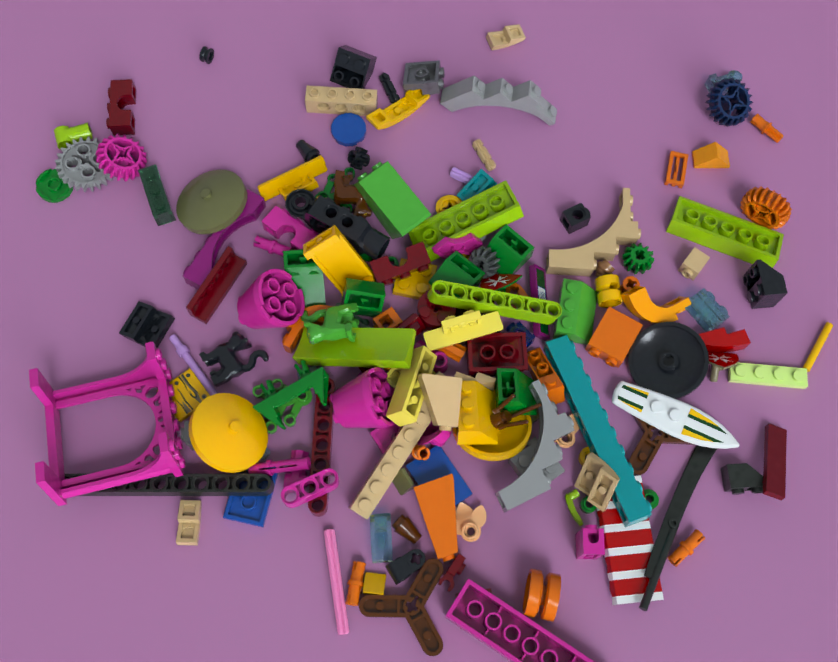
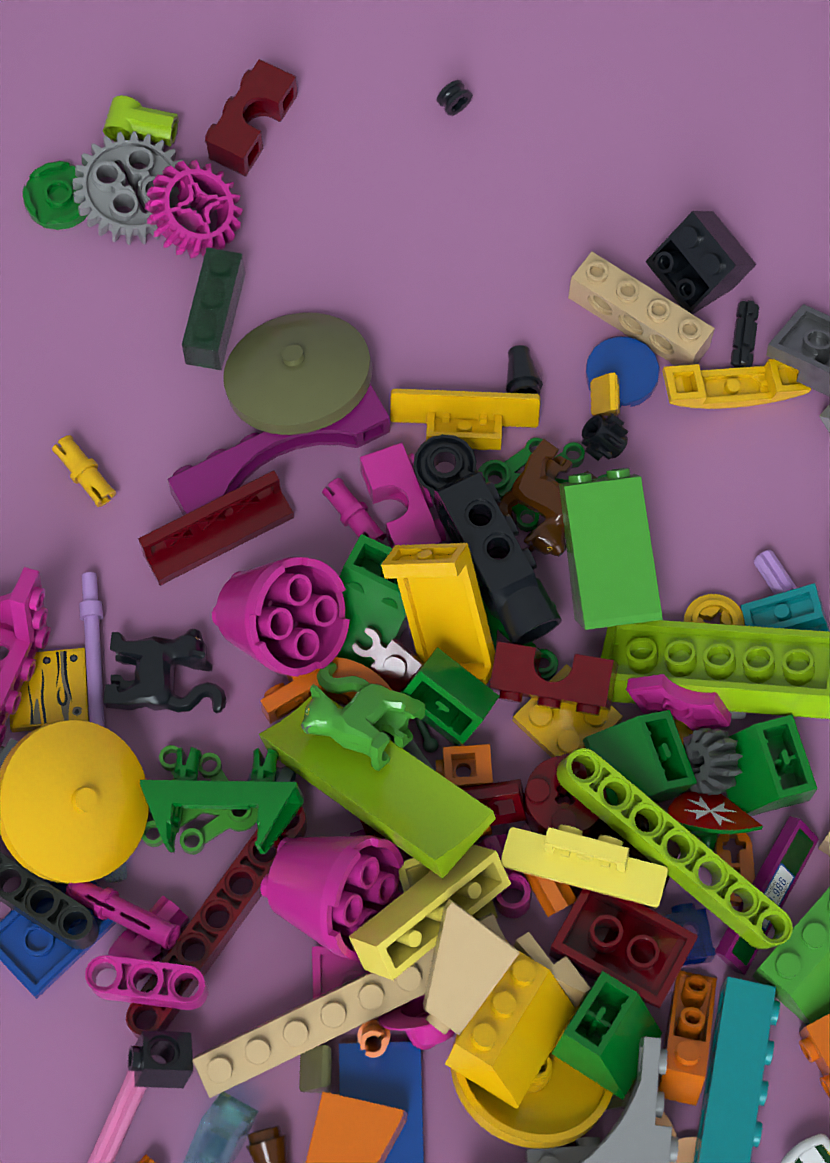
camera: 35 degrees right, 0 degrees up
(141, 294) = (84, 471): none -> yellow pin
(146, 325) = (59, 531): black slope -> none
(329, 296) = (392, 662): none -> plate
(335, 510) = (173, 1048): none -> black brick
(348, 140) = (605, 395): none -> yellow slope
(501, 418) = (552, 1067): reddish brown plant -> none

